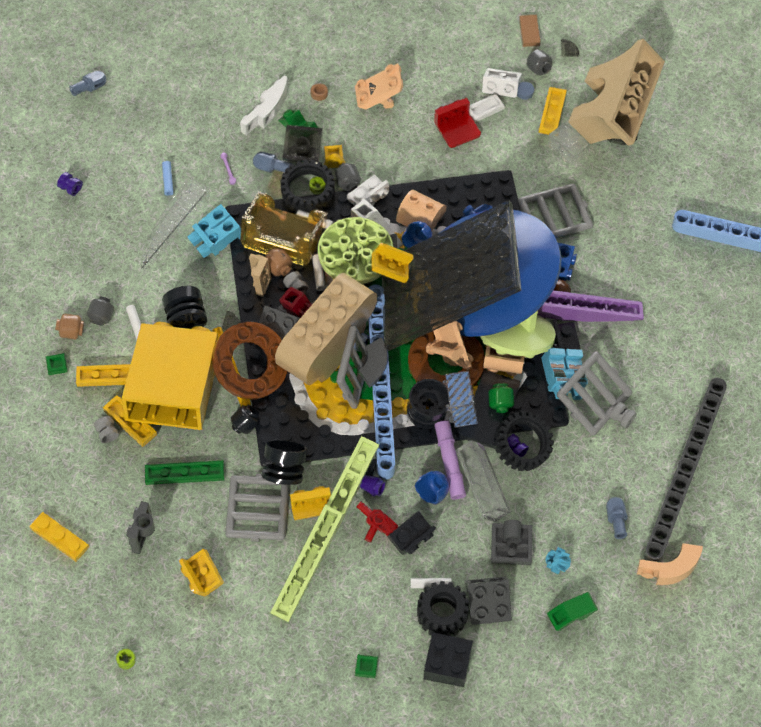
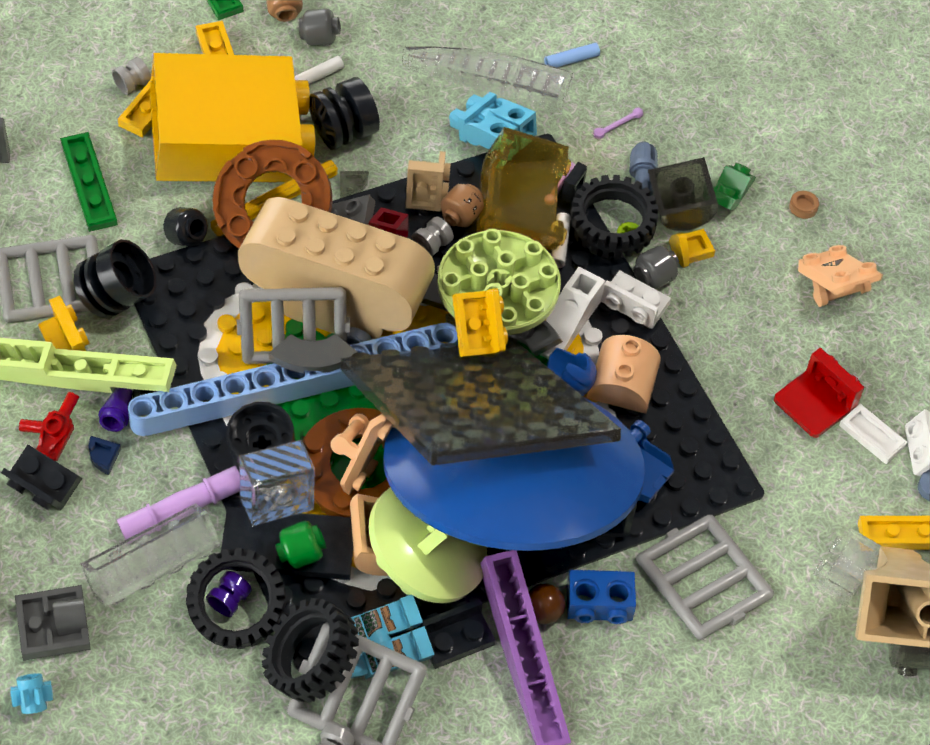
camera: 70 degrees right, 5 degrees down
(271, 103) = (748, 146): white slope -> none
(278, 199) = (574, 182): none -> black tile
(399, 499) = (103, 453): none -> dark blue tile
(432, 487) = (126, 489): blue hair -> none
(559, 426) = (331, 664): none -> black tyre

